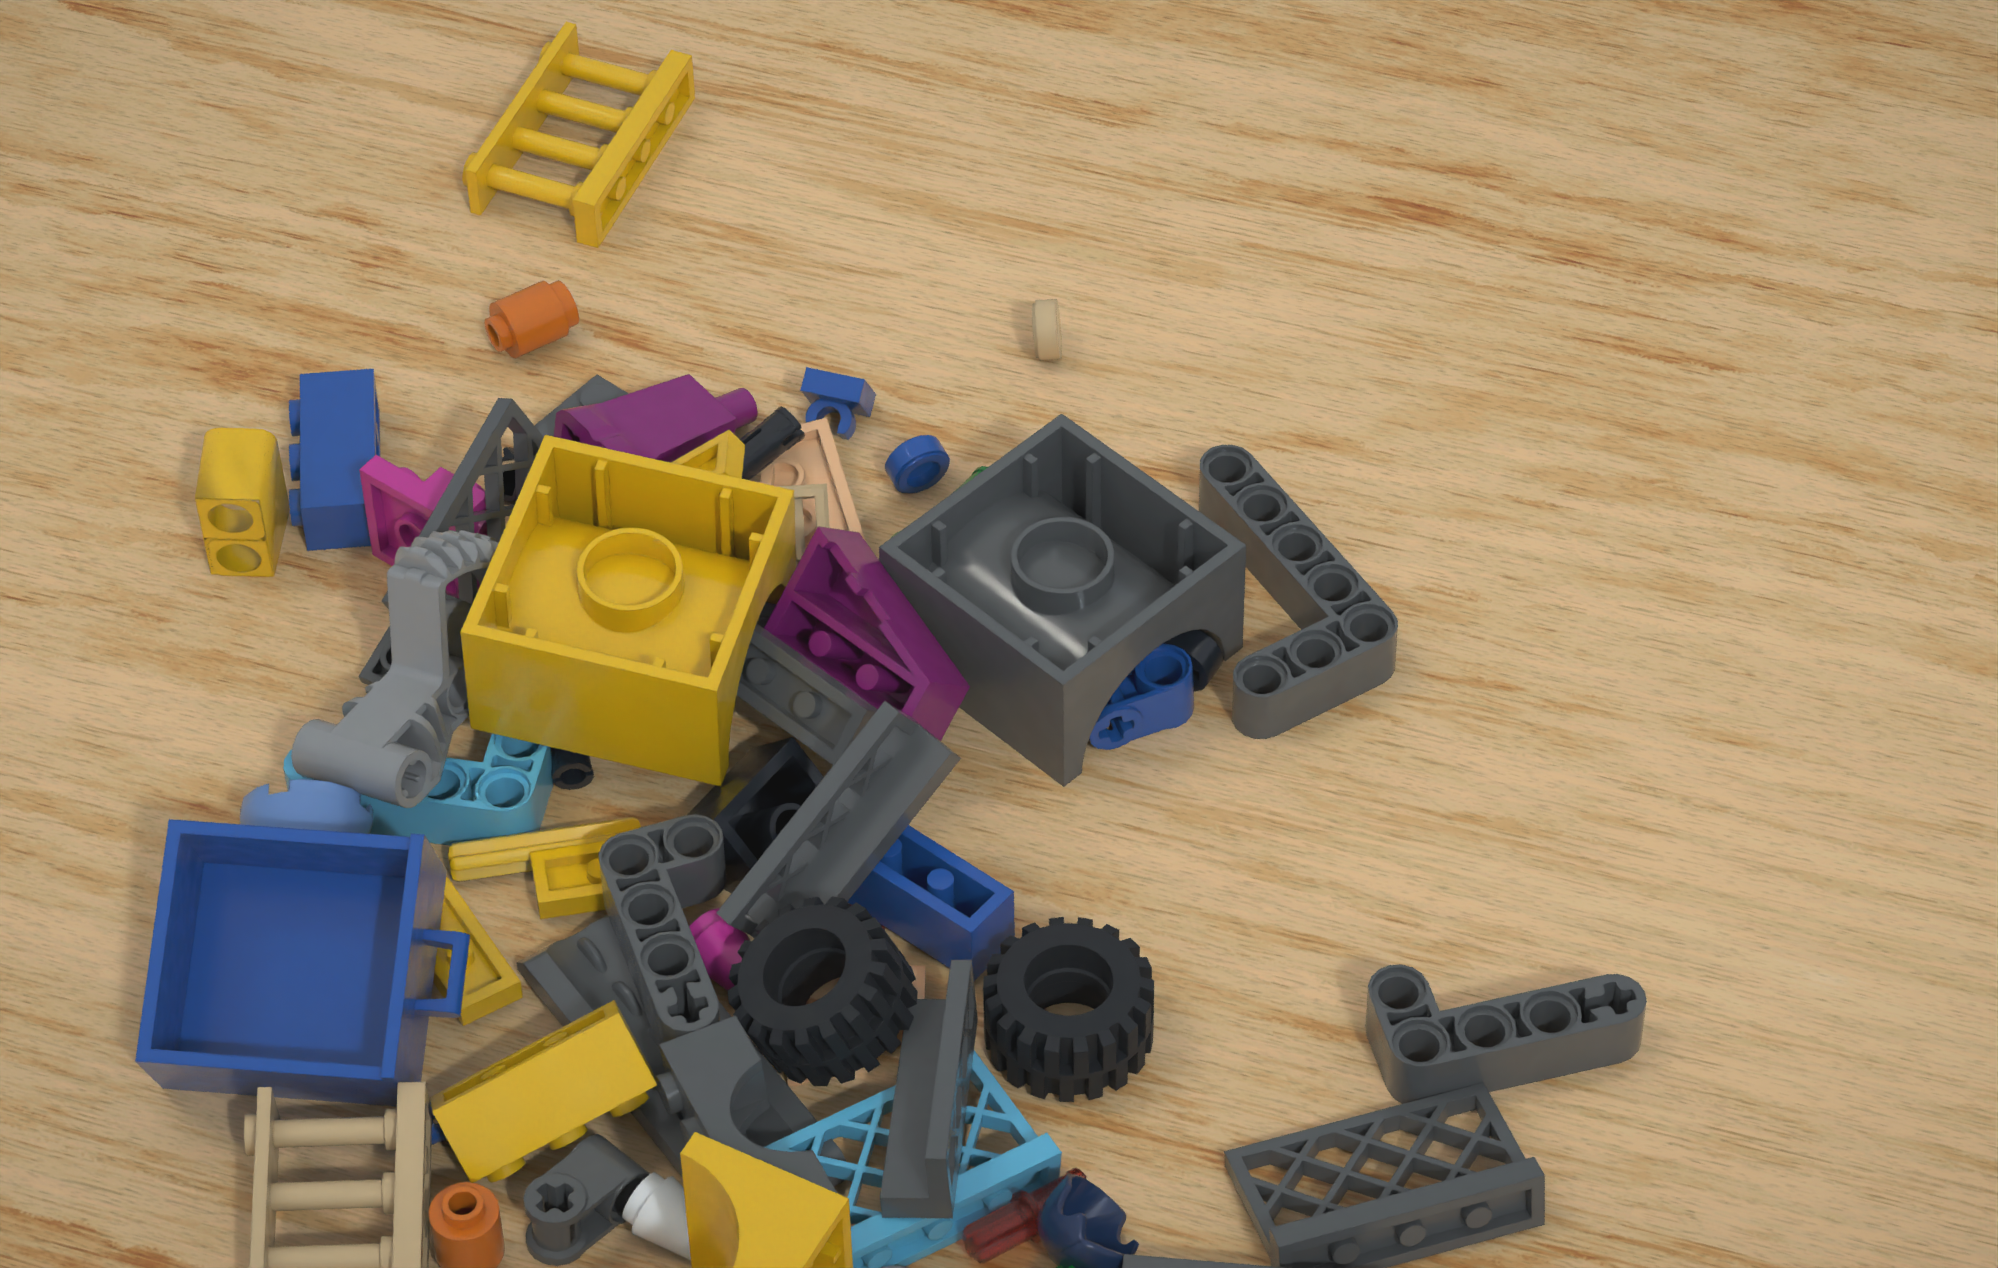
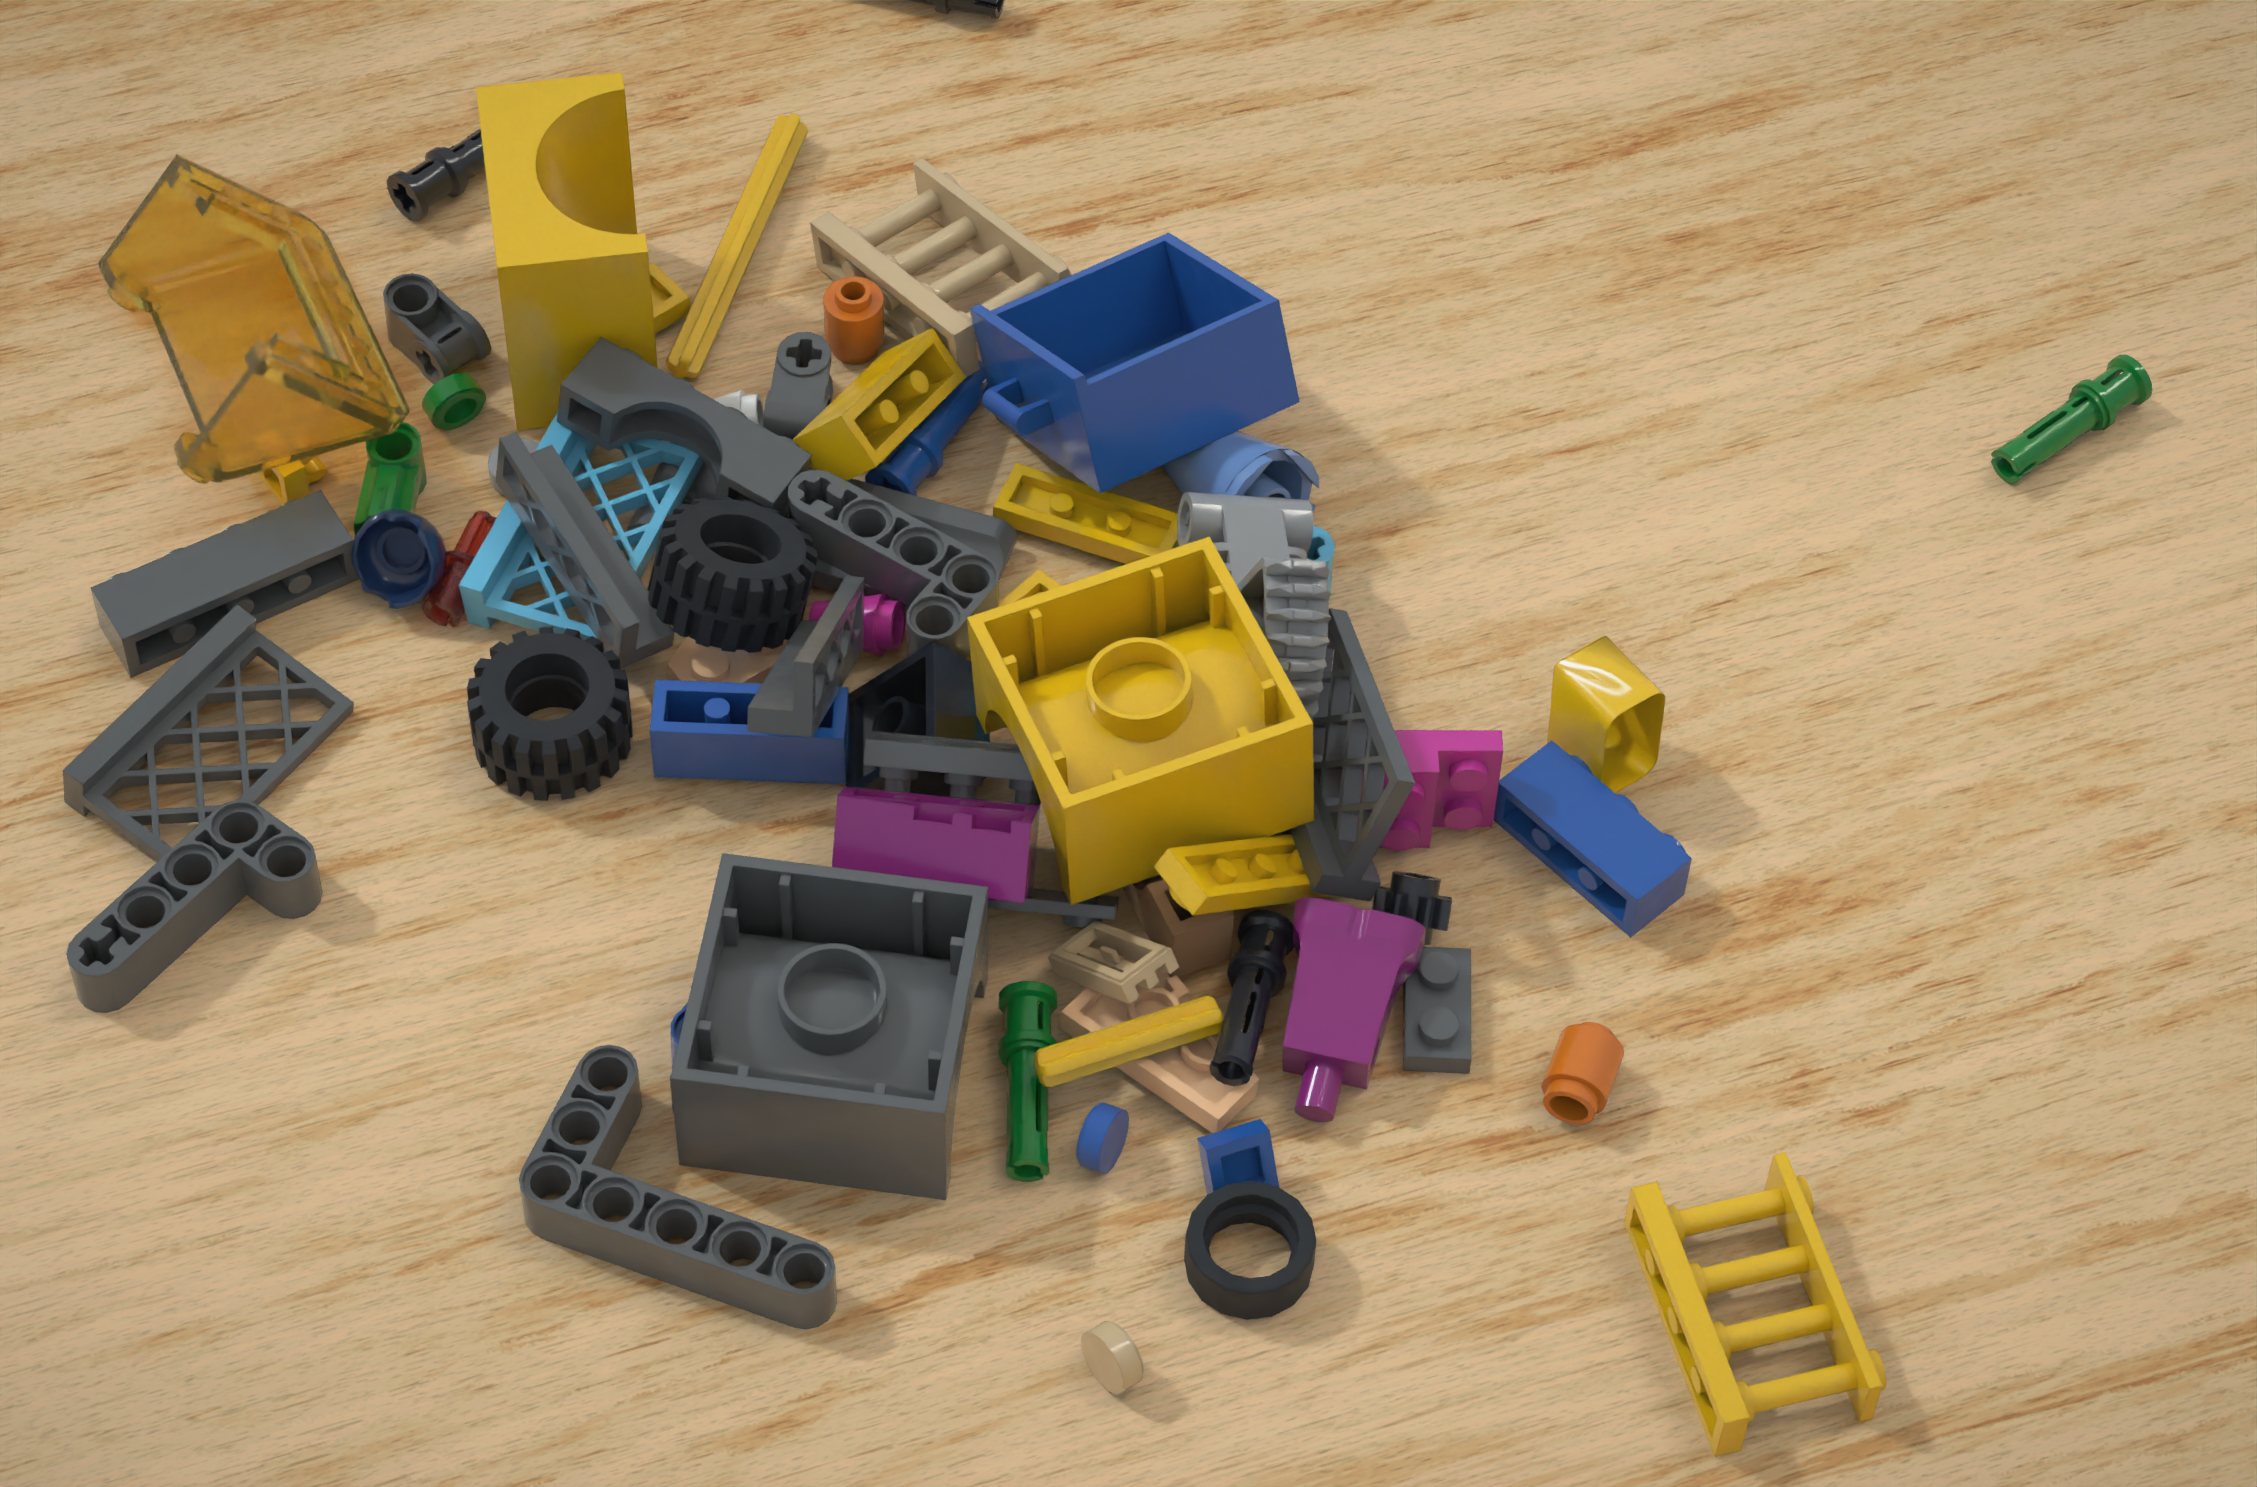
camera: 140 degrees right, 5 degrees up
(854, 484) = (1127, 1041): none -> yellow axle
(886, 310) = (1262, 1206): none -> black tyre

